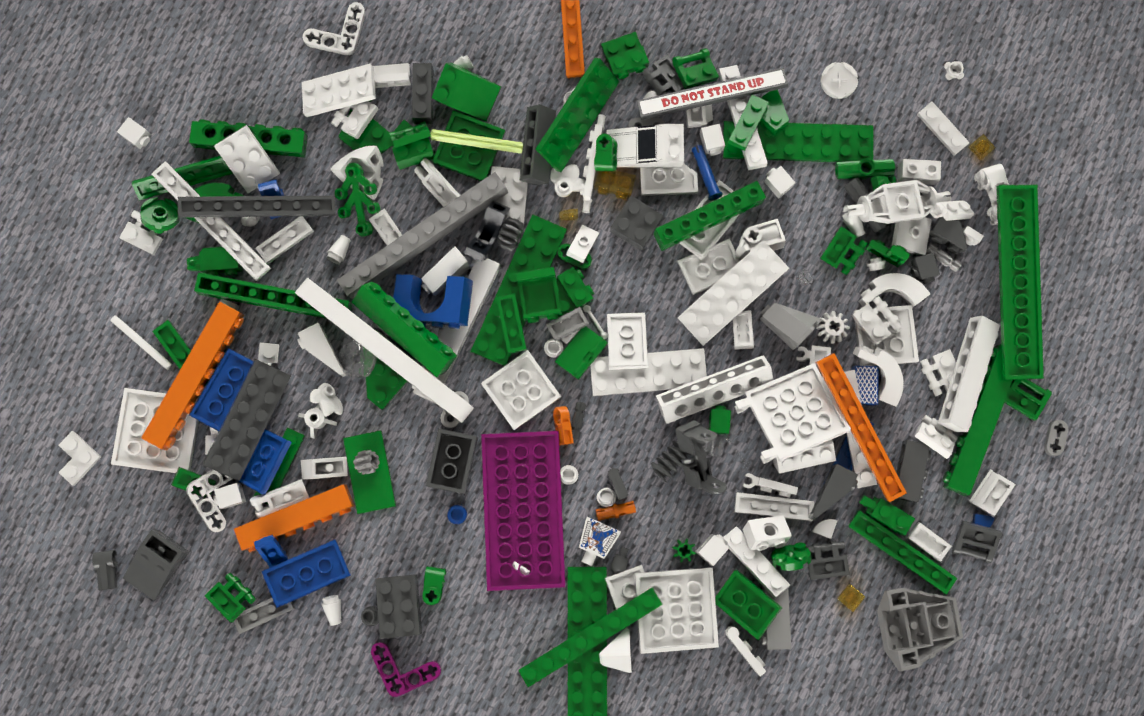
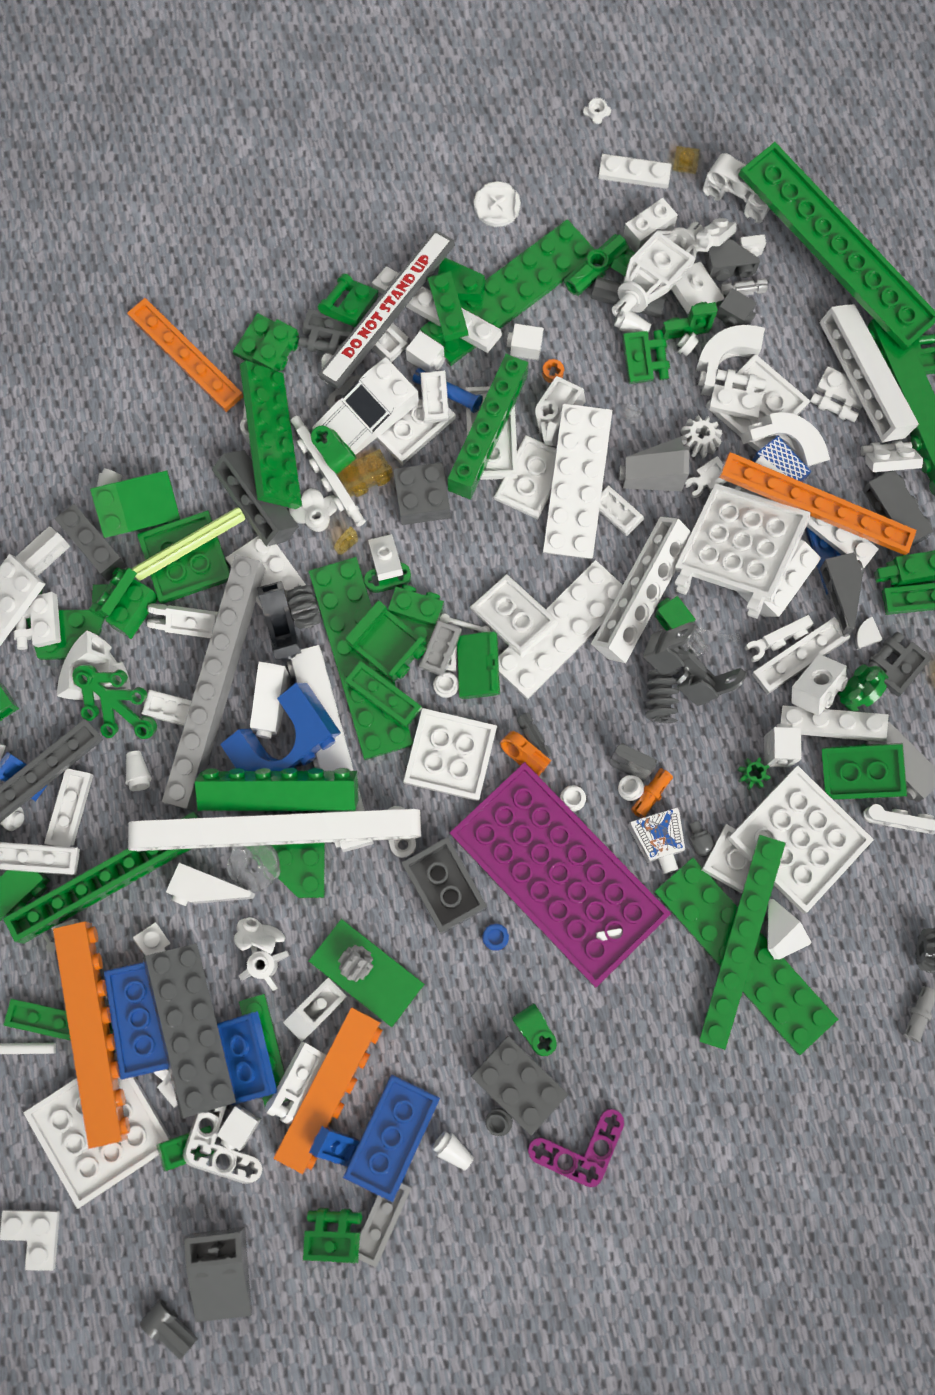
camera: 40 degrees left, 5 degrees down
(694, 171) = (434, 396): none -> white plate
(786, 214) = (549, 364): none -> orange bush

